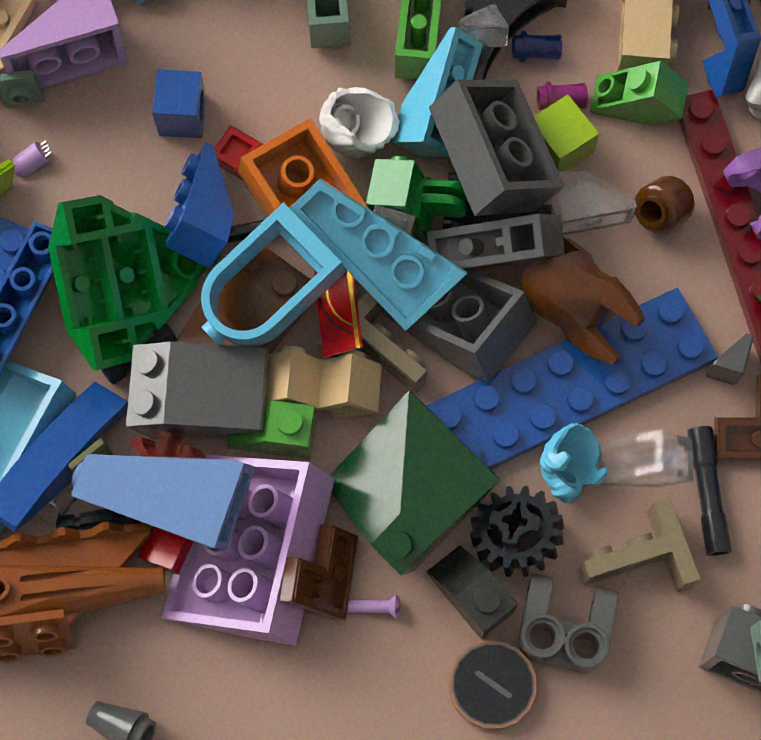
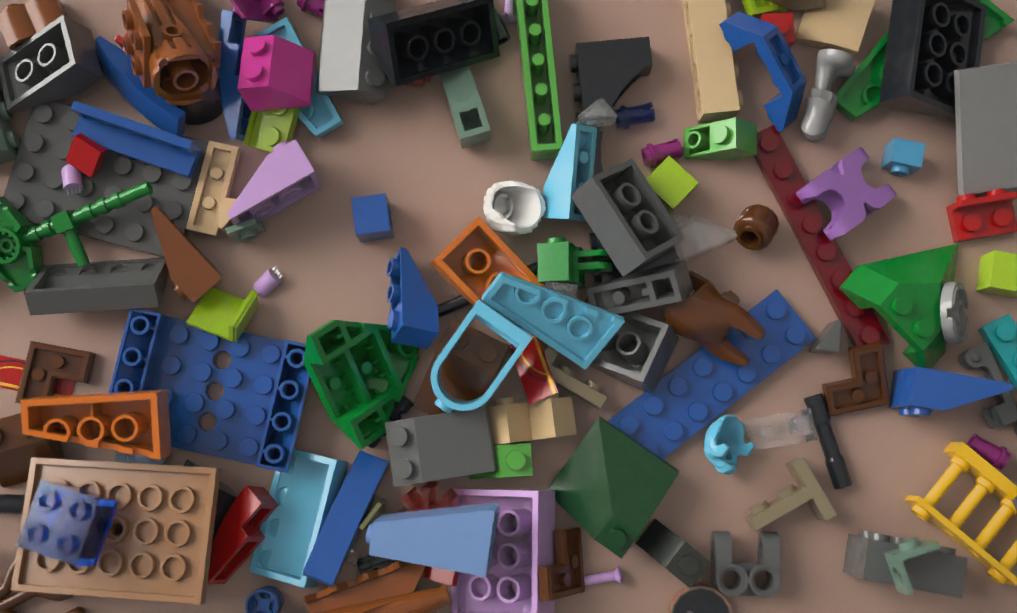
camera: 15 degrees left, 10 degrees up
(232, 147) = (424, 245): red tile -> none
(529, 542) = (709, 503): black gear -> none

